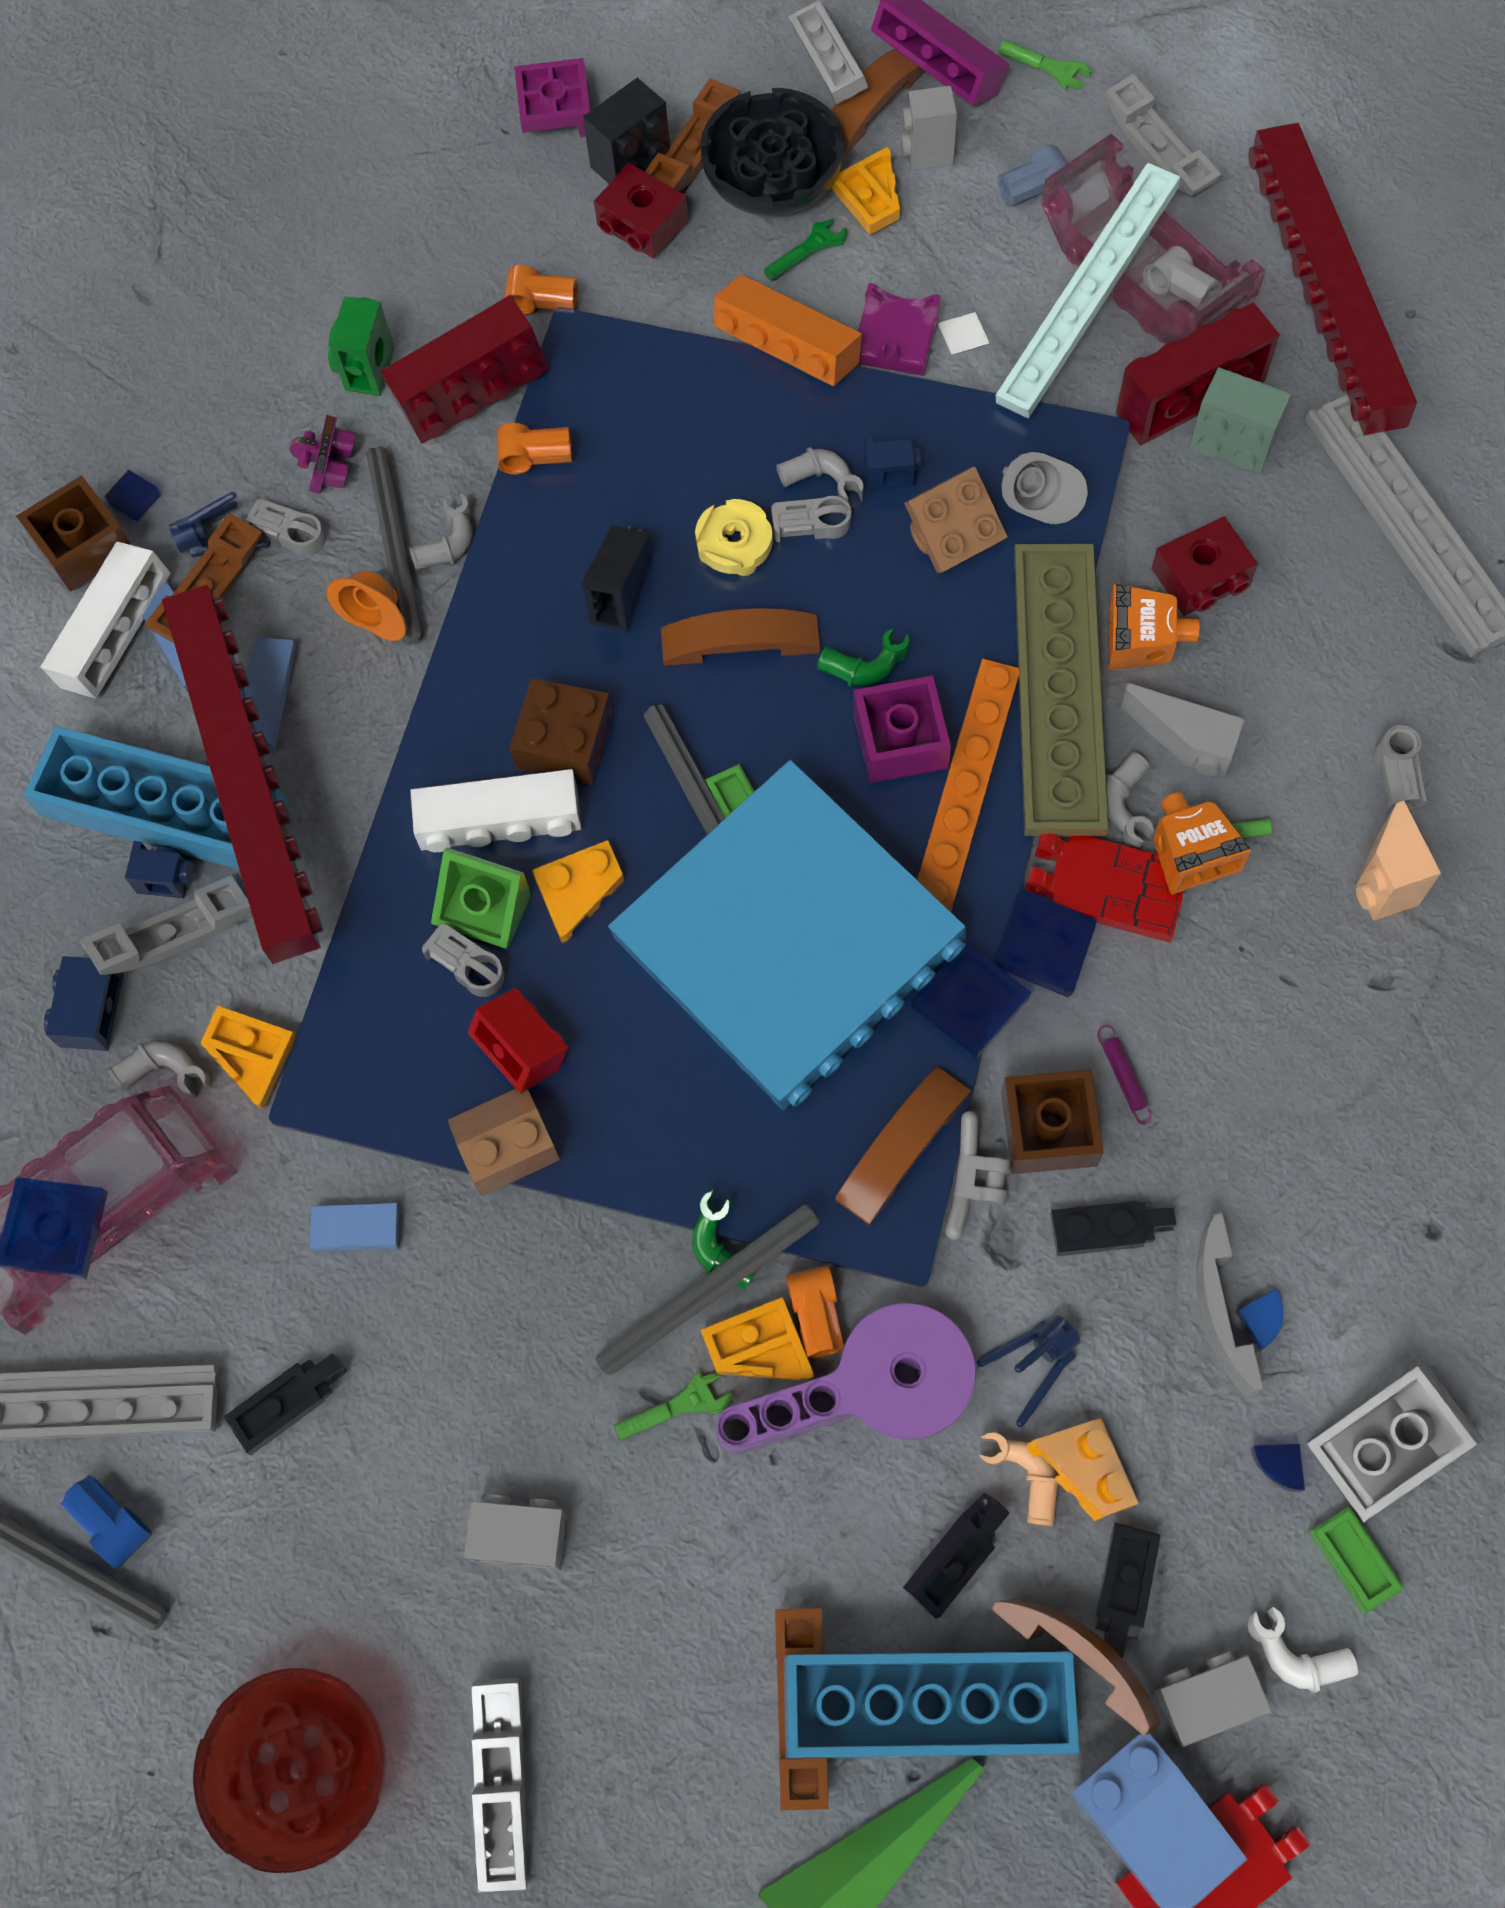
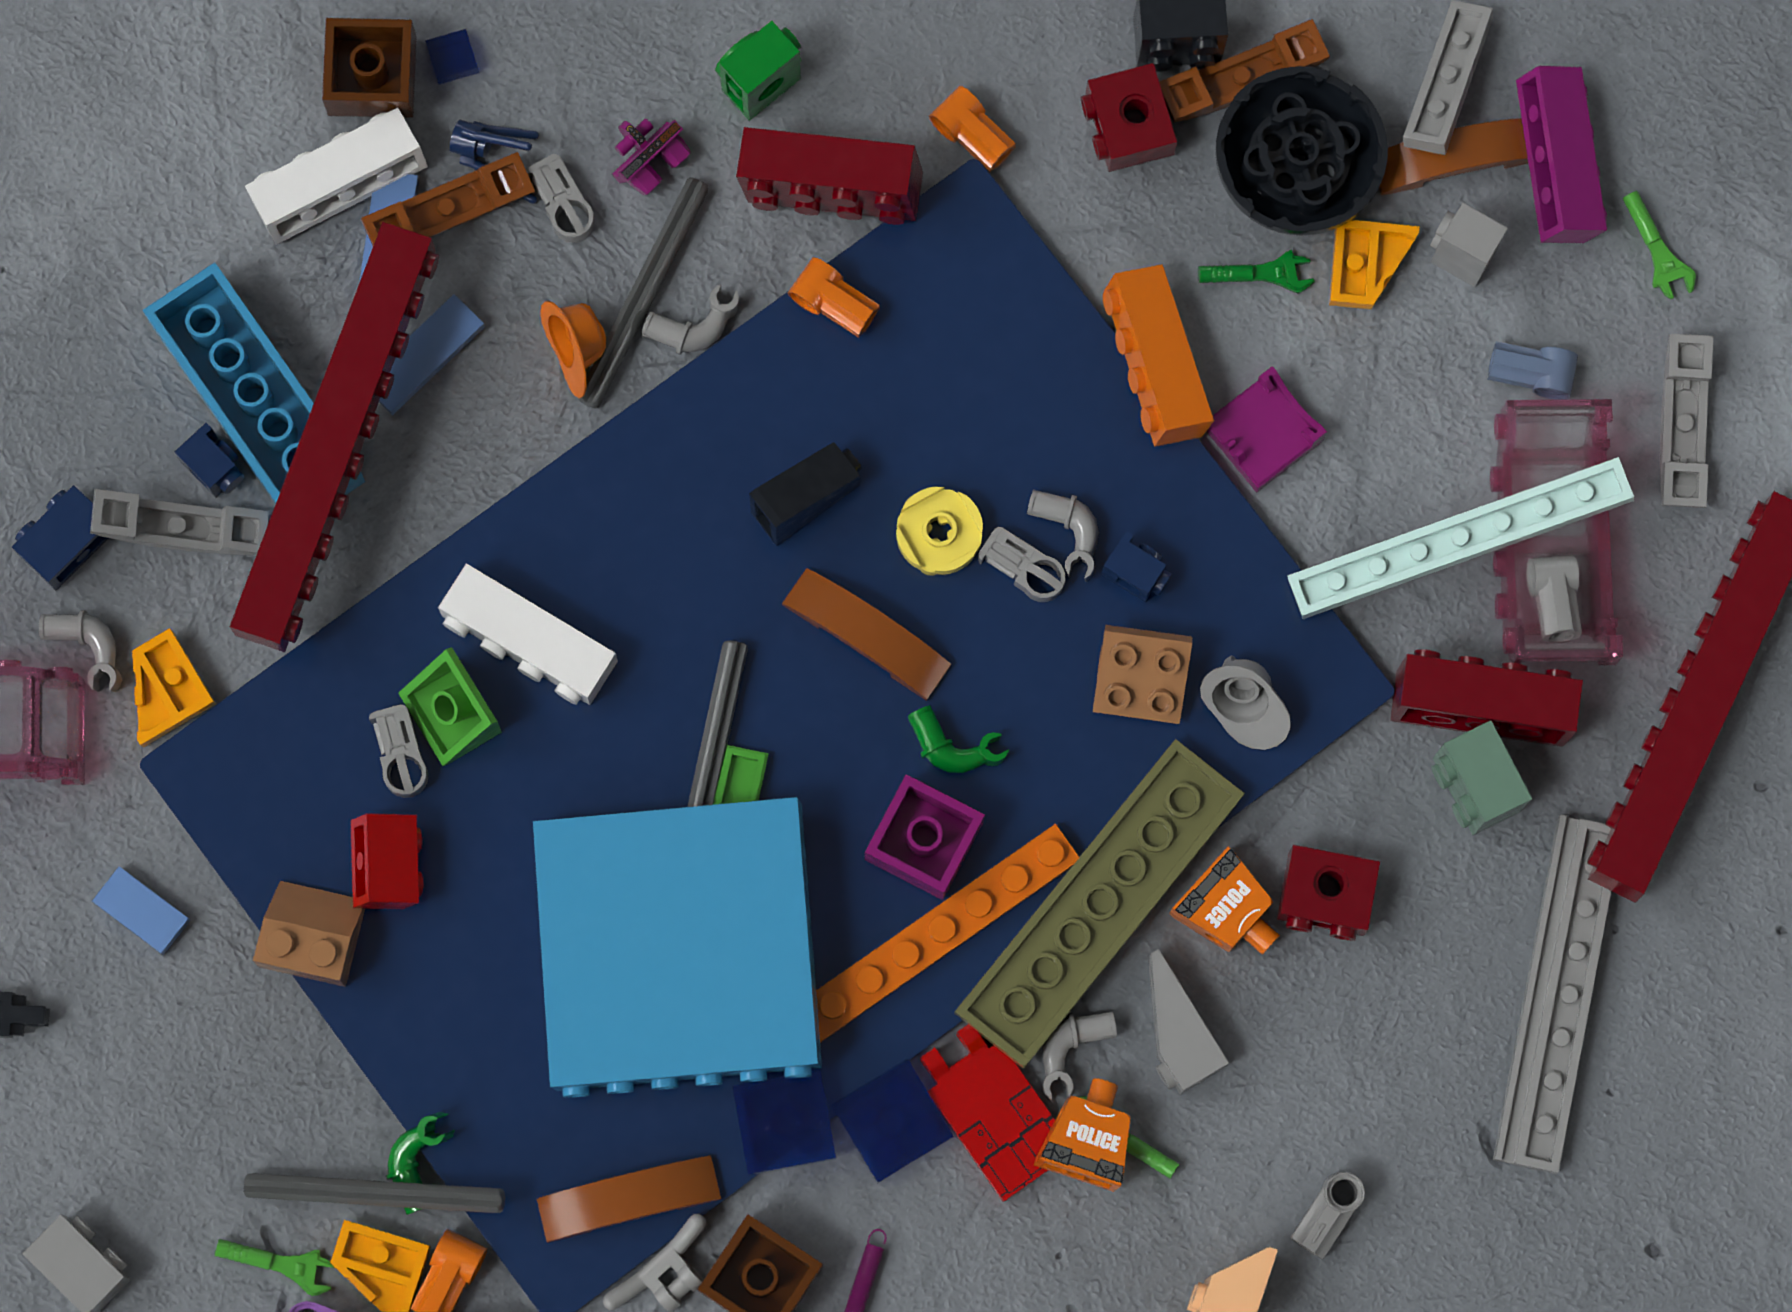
camera: 30 degrees right, 10 degrees up
(561, 730) = (638, 605): reddish brown brick -> none
(577, 885) = (544, 757): light orange wing -> none
(963, 333) = (1329, 477): white sticker -> none

